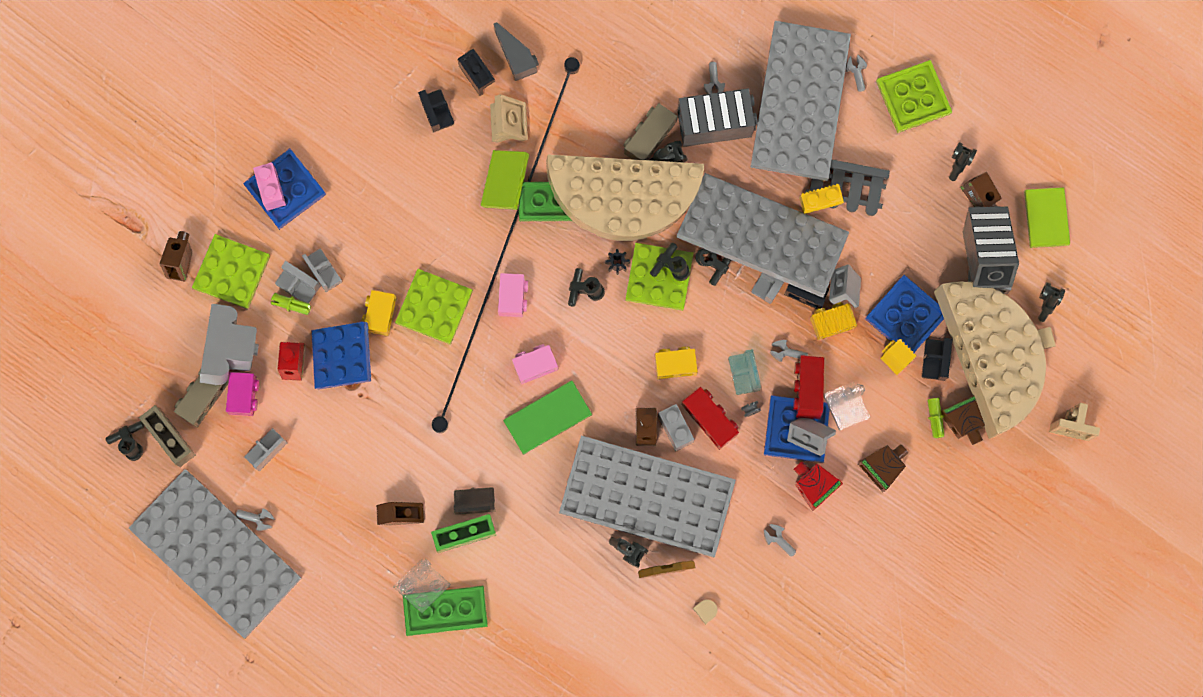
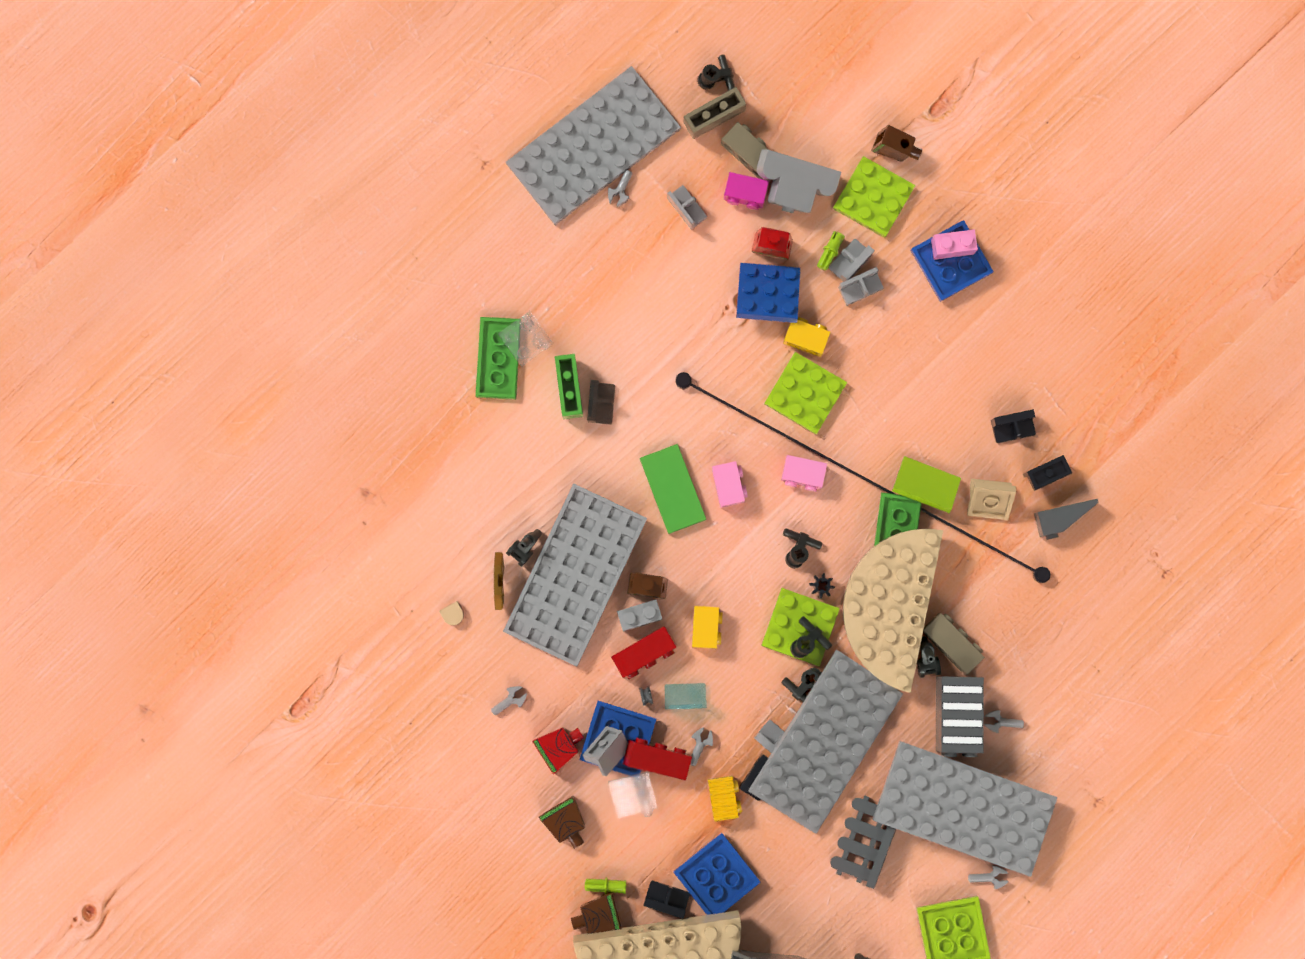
camera: 105 degrees right, 5 degrees up
(400, 513) = (600, 328): reddish brown slope -> none
(821, 199) = (854, 809): yellow brick -> none
(845, 286) = (757, 817): light grey panel -> none
(897, 356) = (674, 857): yellow brick -> none

